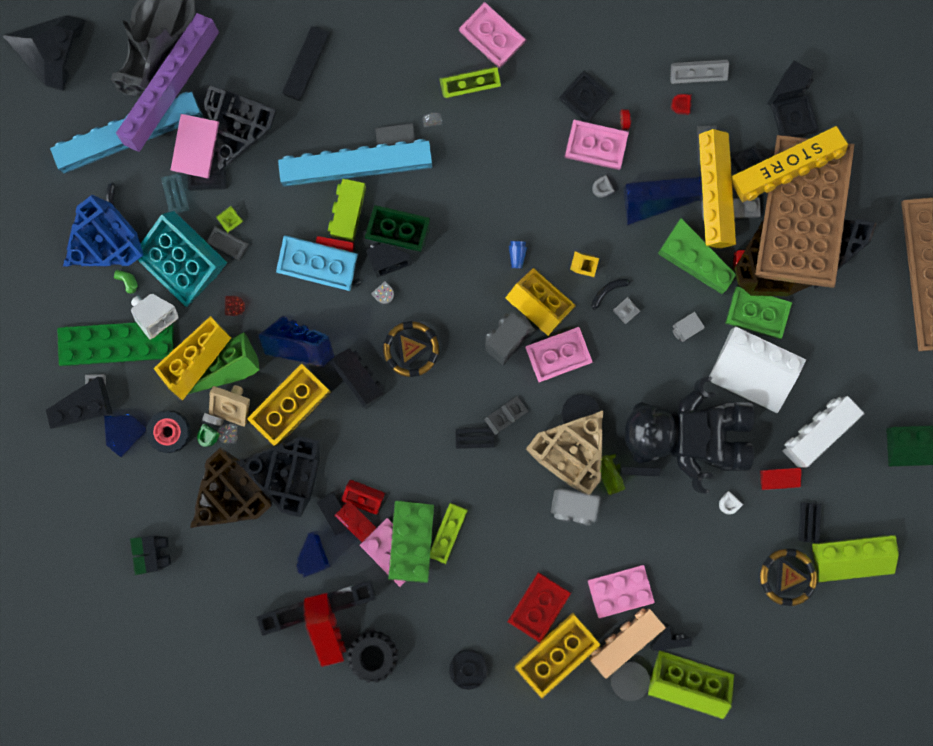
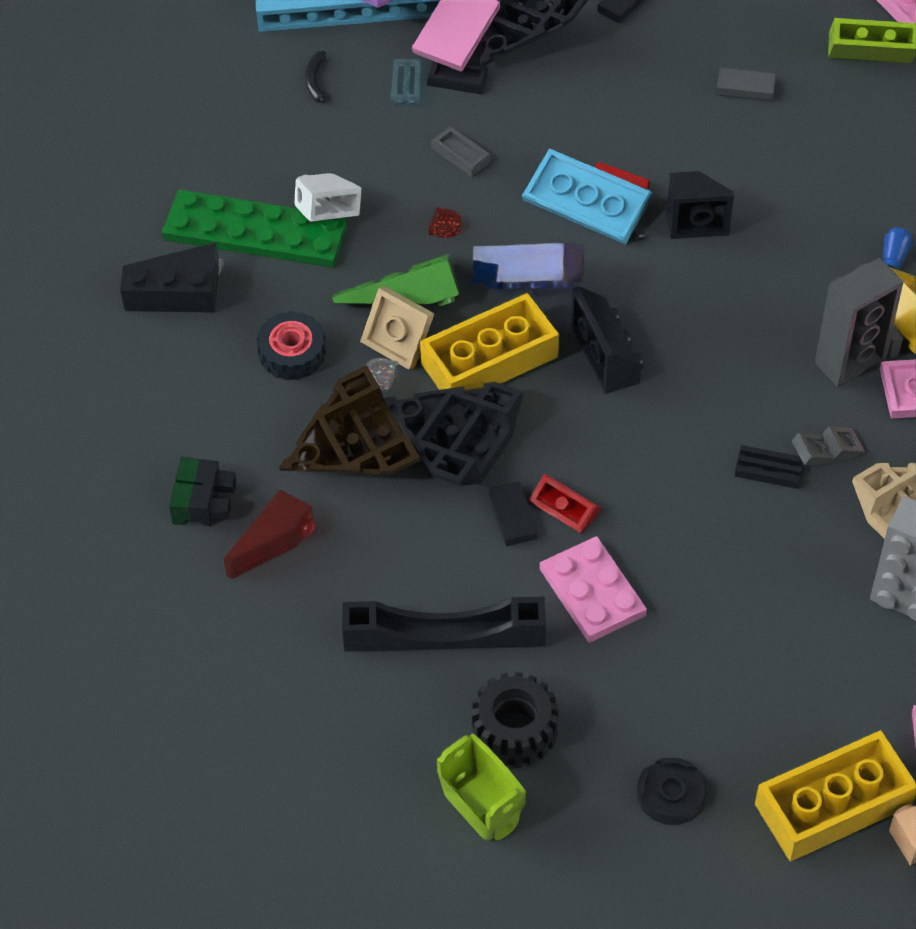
camera: 15 degrees right, 30 degrees down
(101, 236) = (283, 93): blue wedge -> none
(122, 432) = (221, 333): clear blue slope -> none
(129, 280) = (301, 157): bright green arm -> none
(180, 258) = (386, 148): teal slope -> none
(192, 357) = (365, 257): yellow wedge -> none
(202, 566) = (272, 533): none -> clear red slope
(207, 436) = (347, 363): green tile -> none
(213, 420) = (364, 345): light grey tile -> none
(229, 219) = (474, 122): lime tile -> none
(312, 556) = (459, 549): clear blue slope -> none
(323, 630) = (447, 656): red wedge -> none
(347, 210) = (653, 142): lime brick -> none
(355, 163) = (679, 98): medium azure brick -> none
(355, 521) = (543, 526): red plate -> none
(367, 710) = (481, 787): none -> lime piece
(383, 294) = (675, 256): light grey tile -> none
(398, 228) = (742, 175): dark green slope -> none
(411, 349) = (700, 324): piece -> none
(411, 542) = (627, 572): bright green plate -> none
(432, 119) = (805, 74): clear tile -> none
(447, 533) = (689, 584): lime tile -> none
(539, 607) = (818, 724): red tile -> none

